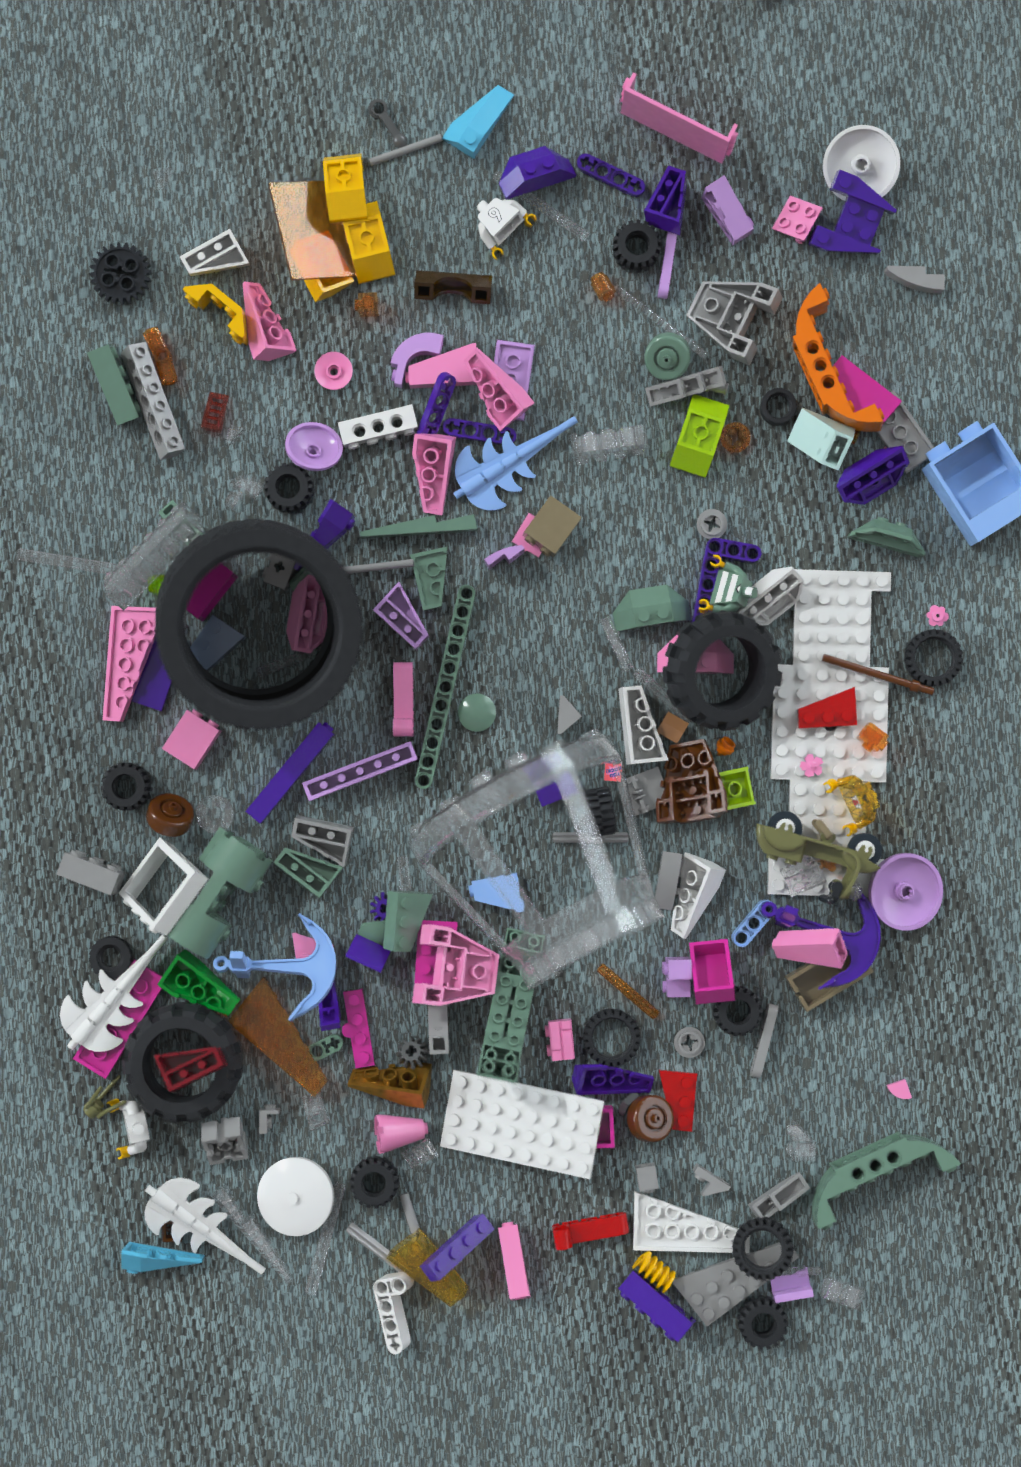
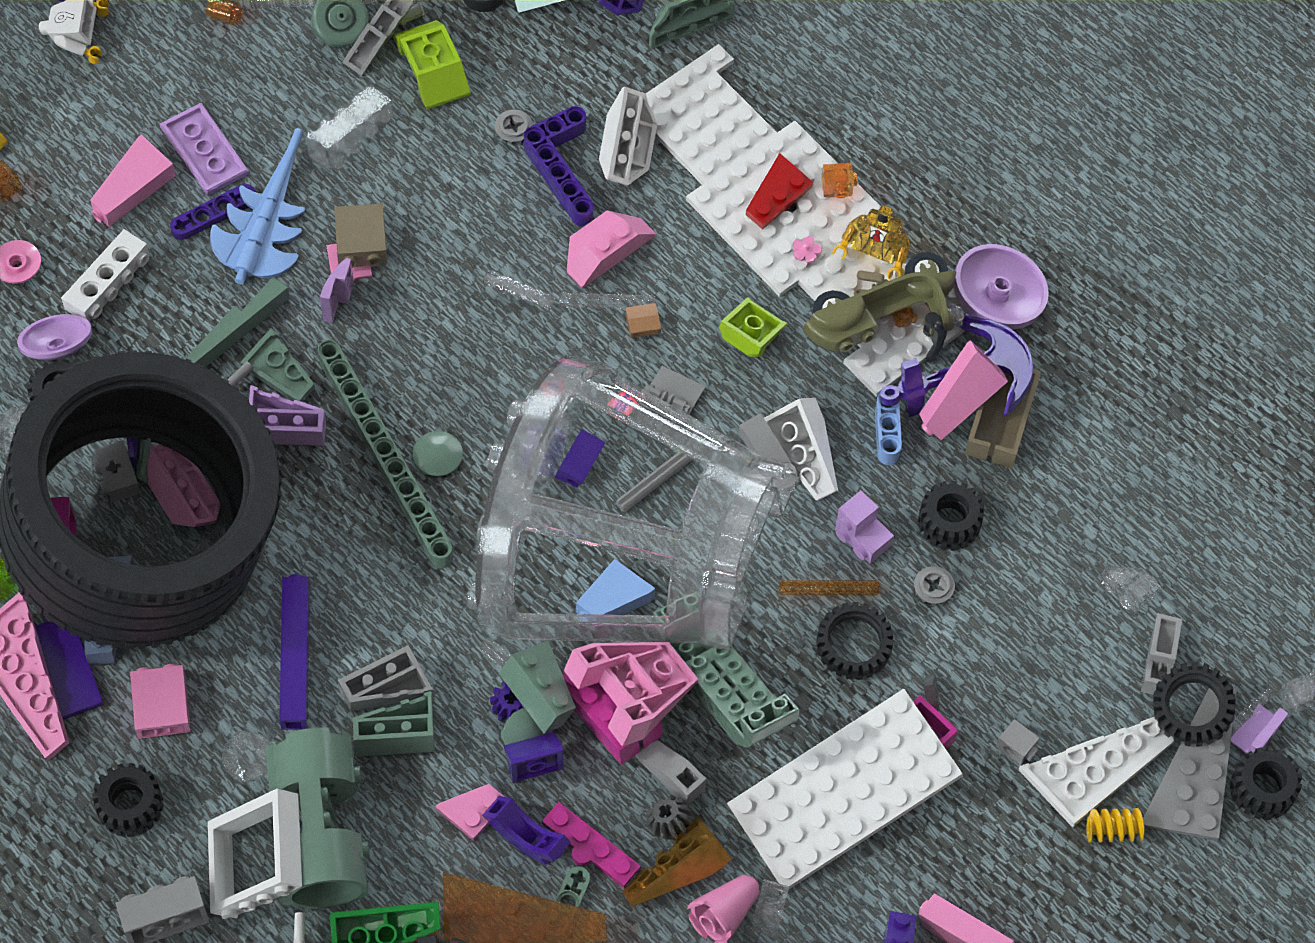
camera: 45 degrees left, 25 degrees down
(170, 815) = (200, 790): reddish brown wheel -> none
(318, 967) = (492, 802): light blue piece -> none
(360, 771) = (367, 592): lavender brick -> none
(403, 699) = (369, 512): bright pink beam -> none
(414, 346) = (80, 186): lavender arch -> none
(433, 284) = (90, 97): dark brown arch -> none
(433, 464) = (192, 267): bright pink wedge -> none
(439, 408) = (148, 216): dark purple beam -> none
(501, 393) = (203, 157): bright pink wedge -> none
(561, 1039) = (806, 683): bright pink brick -> none
(567, 715) = (523, 379): light grey slope -> none
(589, 1229) = (1011, 841): red beam -> none
(602, 809) = (639, 447): black tyre -> none
(604, 1079) = (888, 673): dark purple wedge -> none
(639, 728) = (611, 340): white wedge -> none
(650, 608) = (523, 237): sand green wedge -> none
(650, 1118) = (966, 681): reddish brown wheel -> none
(656, 1306) = (1150, 855): dark purple wedge -> none
(680, 1094) = (973, 641): red wing -> none
(692, 785) = (711, 350): reddish brown wedge -> none
(712, 971) = (895, 488): dark pink piece -> none
(714, 1183) = (1086, 691): light grey slope -> none
(725, 746) = (709, 299): orange plate -> none
(730, 589) = (583, 155): sand green torso -> none
(743, 434) = (471, 34): clear orange gear -> none
(760, 680) = (666, 187): black tyre -> none
(764, 1040) = (1004, 525): light grey beam -> none
(803, 876) = (893, 344): clear bracket -> none
(840, 1176) = (1215, 544): sand green slope -> none
(900, 1089) = (1173, 466): bright pink tile -> none
(913, 685) = (832, 114): reddish brown bar -> none
(933, 620) = (796, 55): bright pink plant -> none
(956, 654) = (818, 103): black tyre -> none

